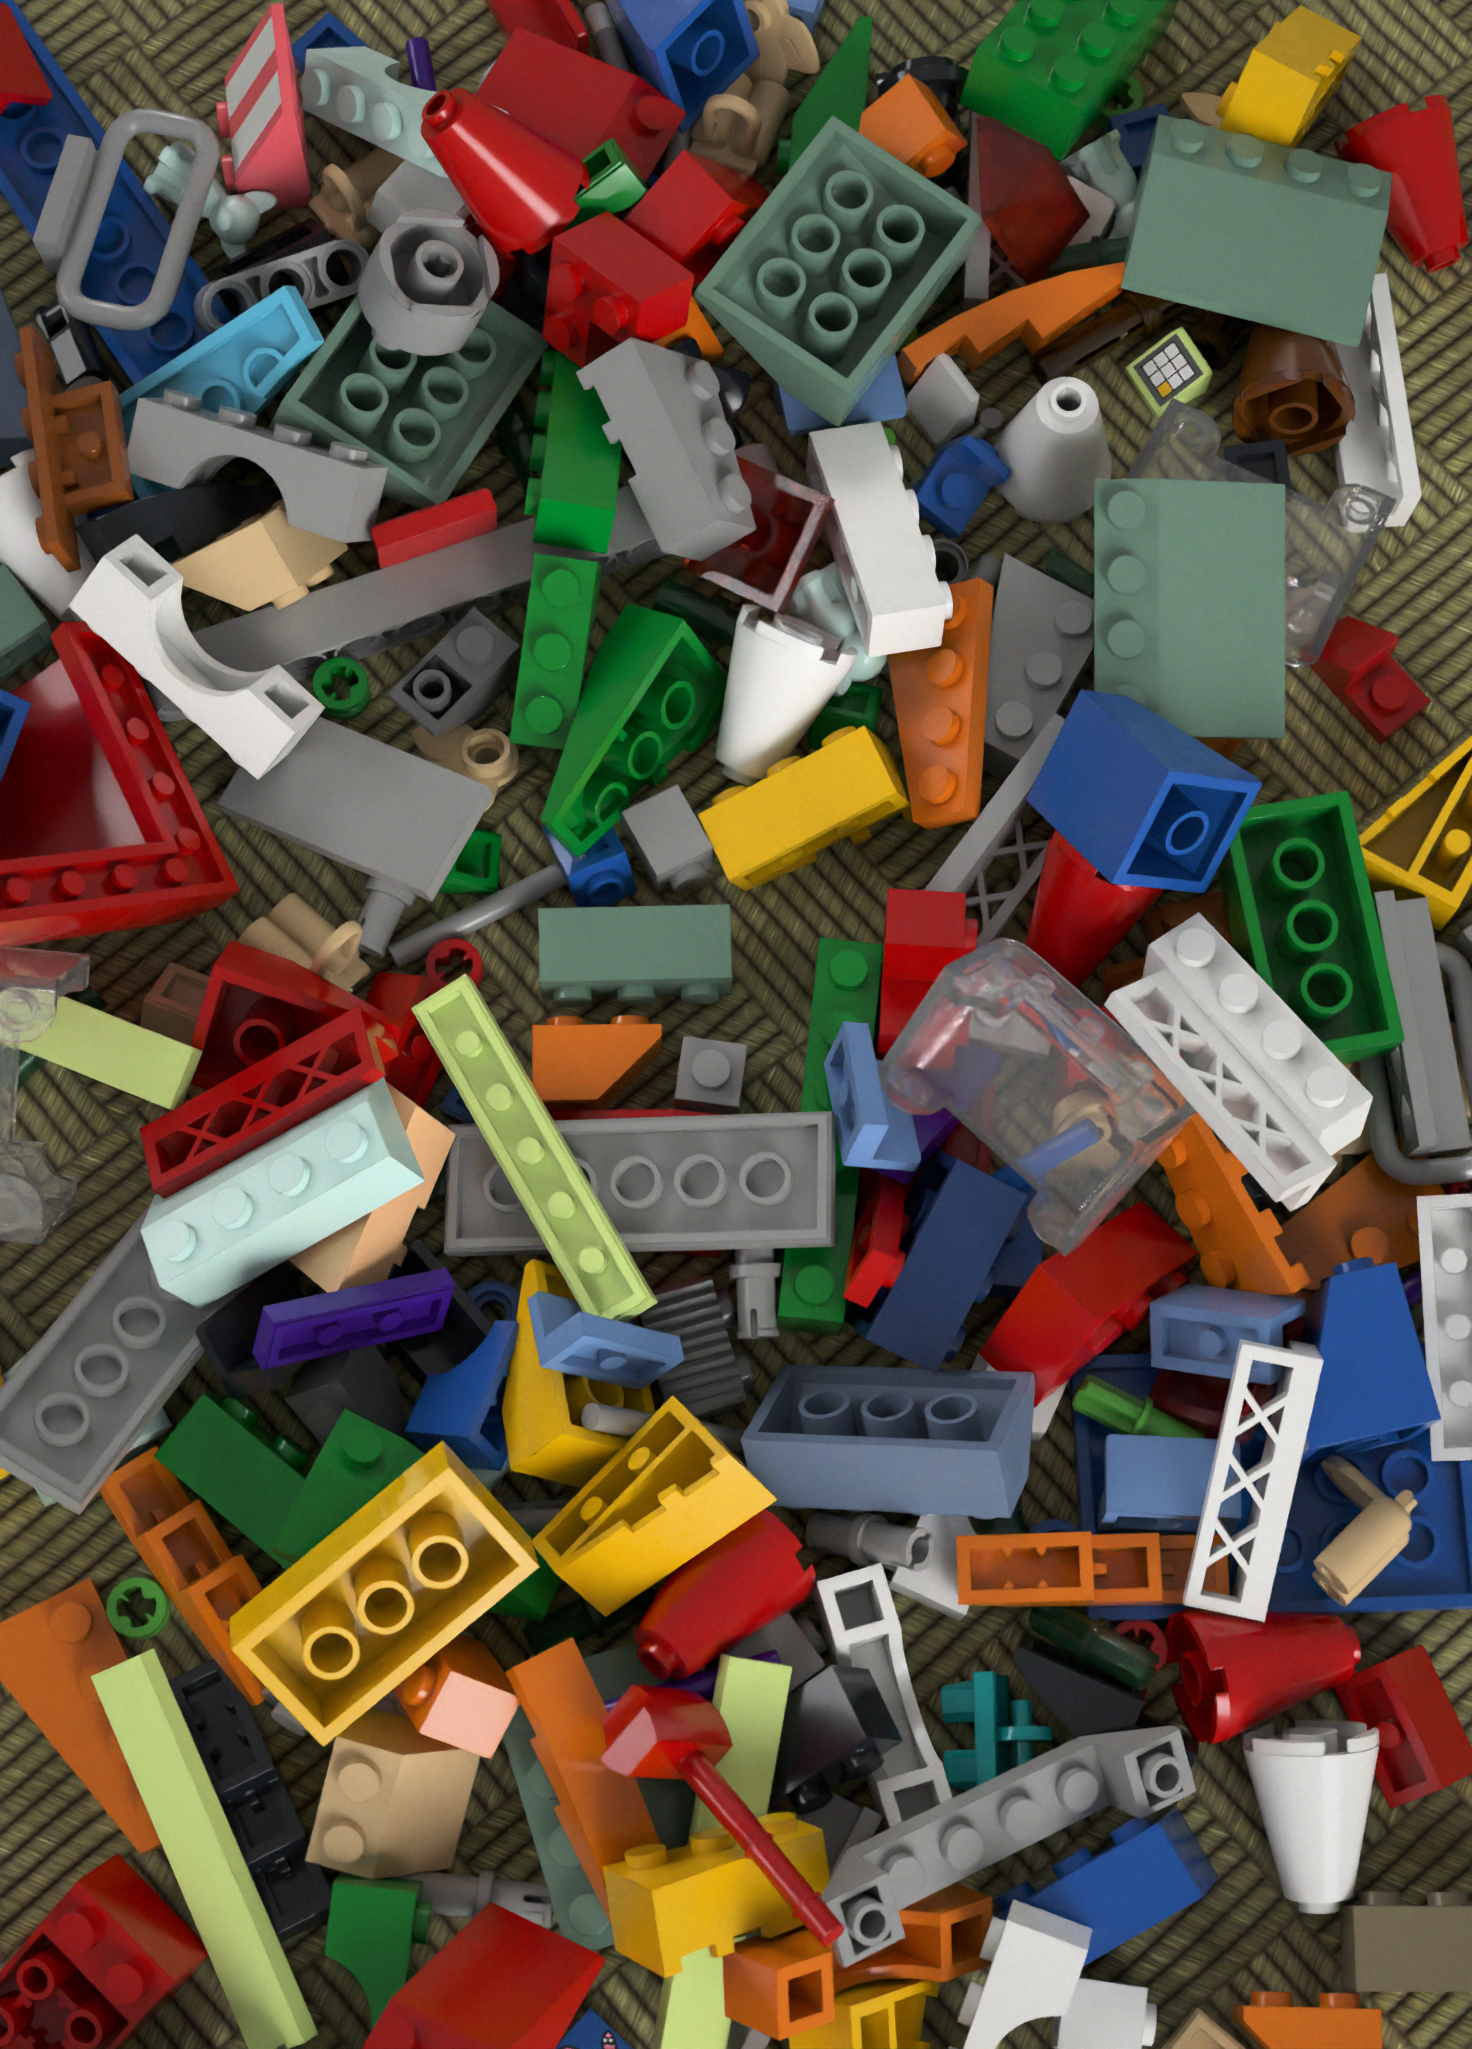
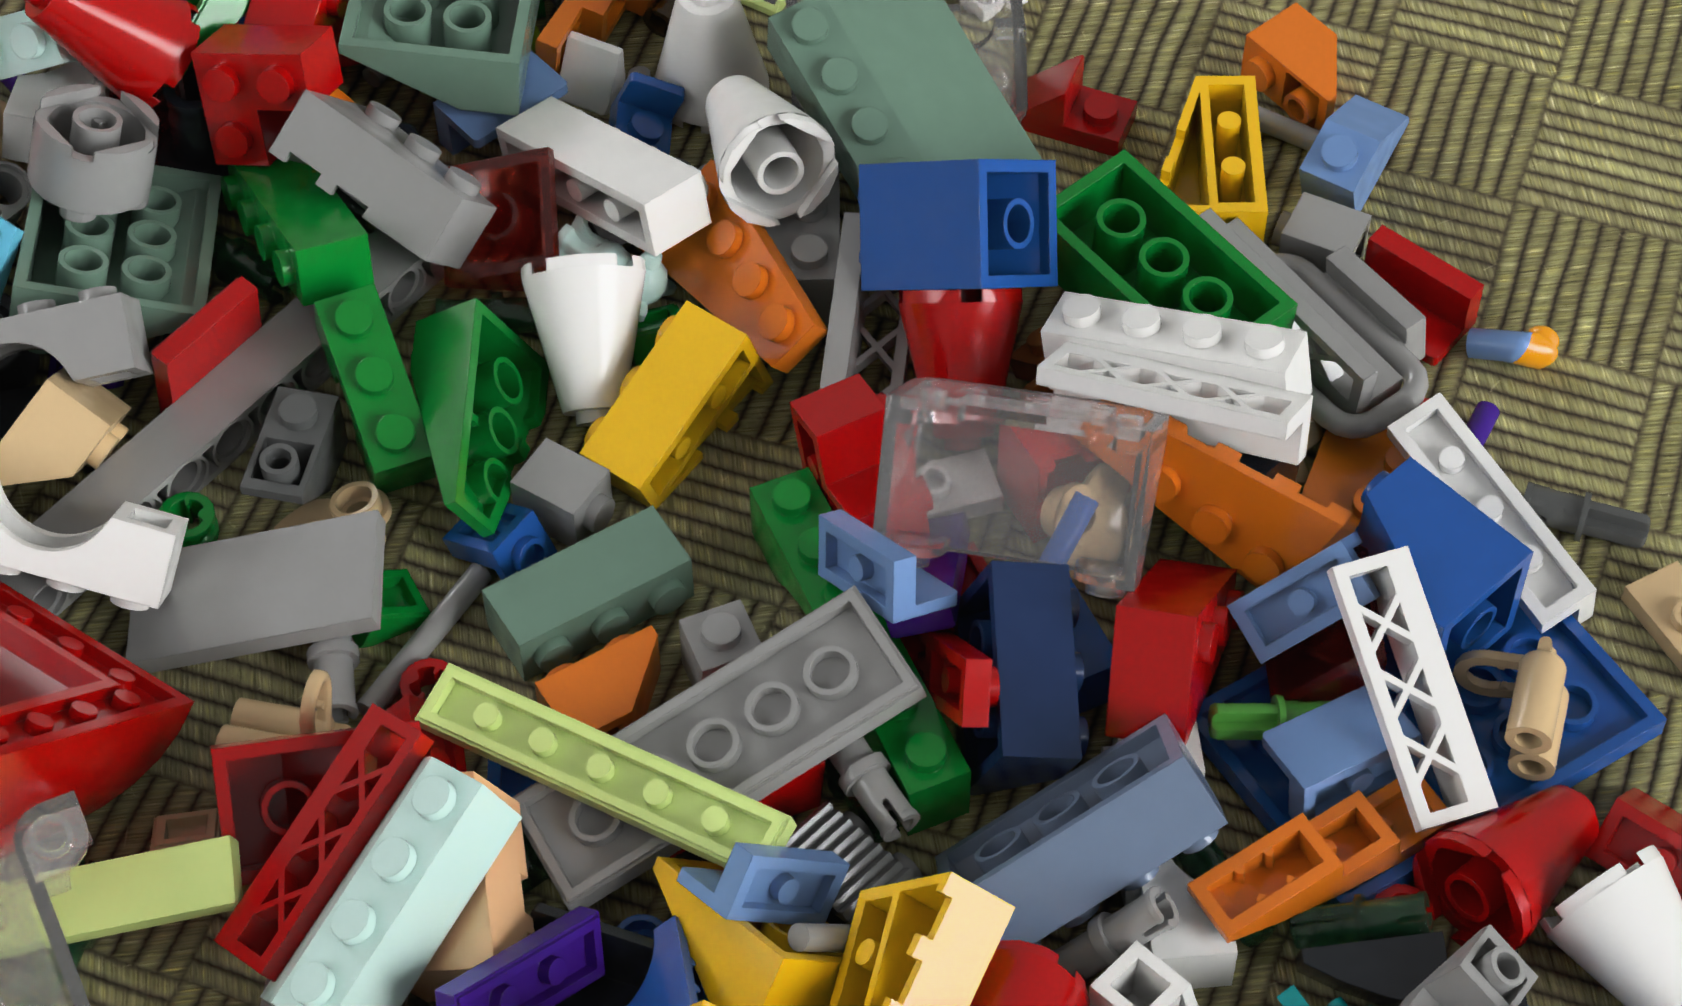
camera: 25 degrees left, 20 degrees down
(1023, 603) = (767, 152): none -> white cone

